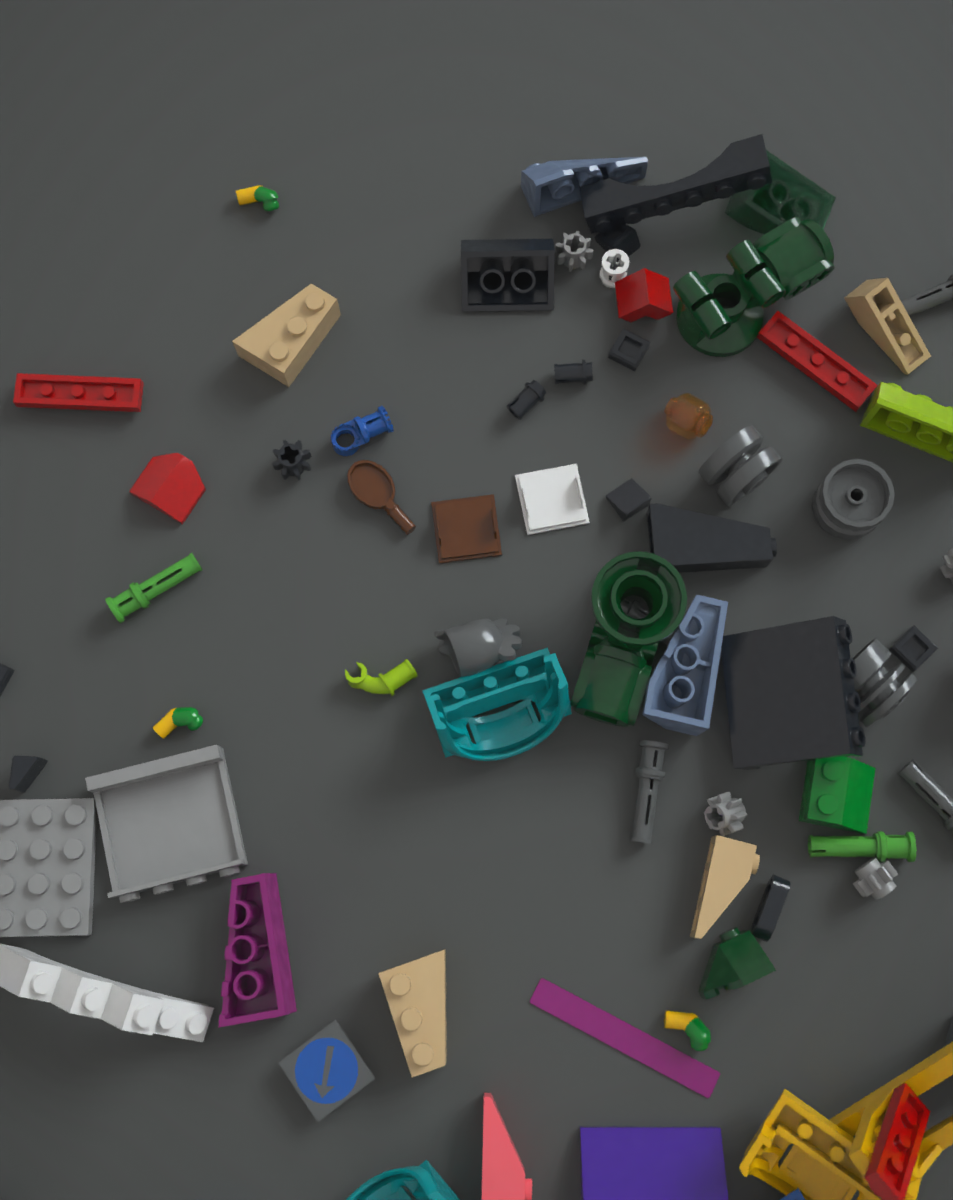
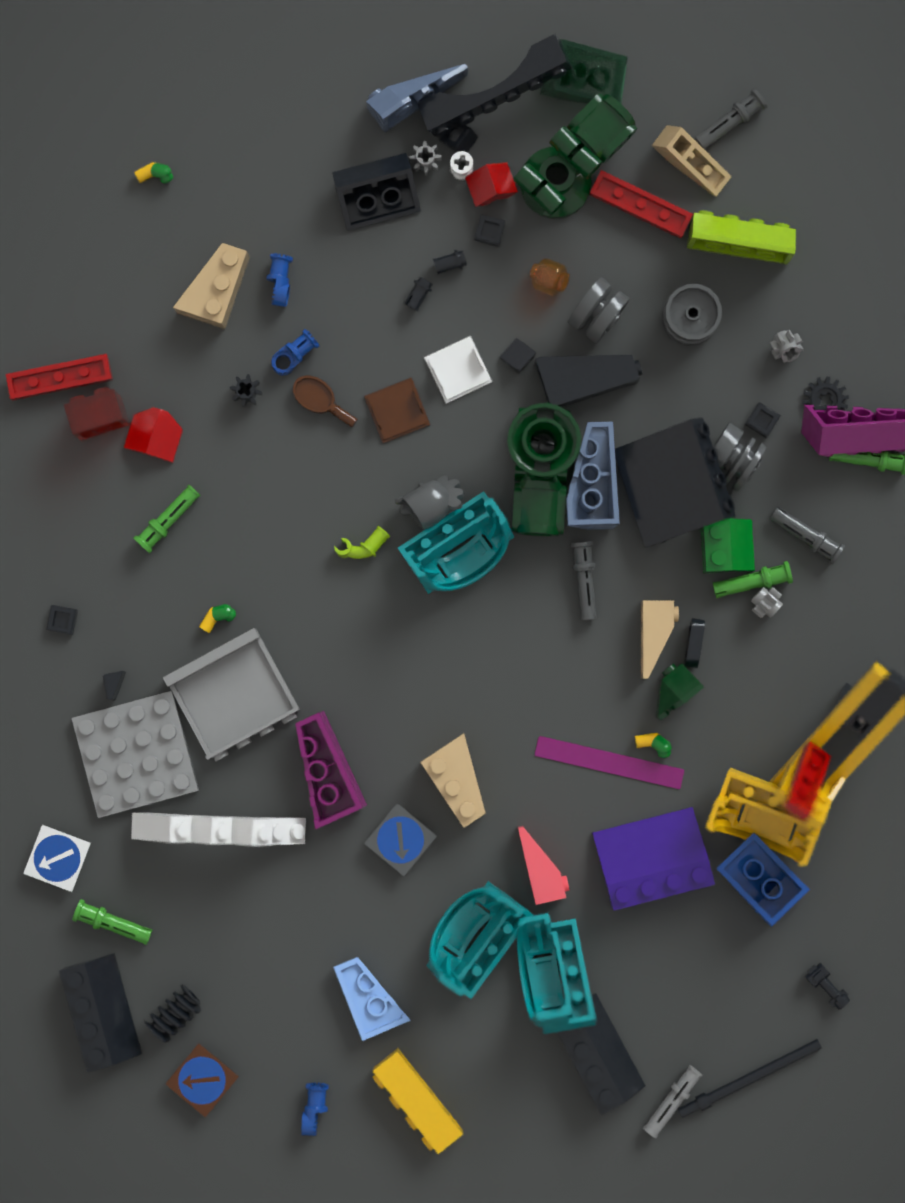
camera: 15 degrees left, 10 degrees up
(105, 441) = (96, 413): none -> clear red brick
(367, 341) = (278, 275): none -> blue connector
(725, 813) = (646, 582): light grey gear -> none

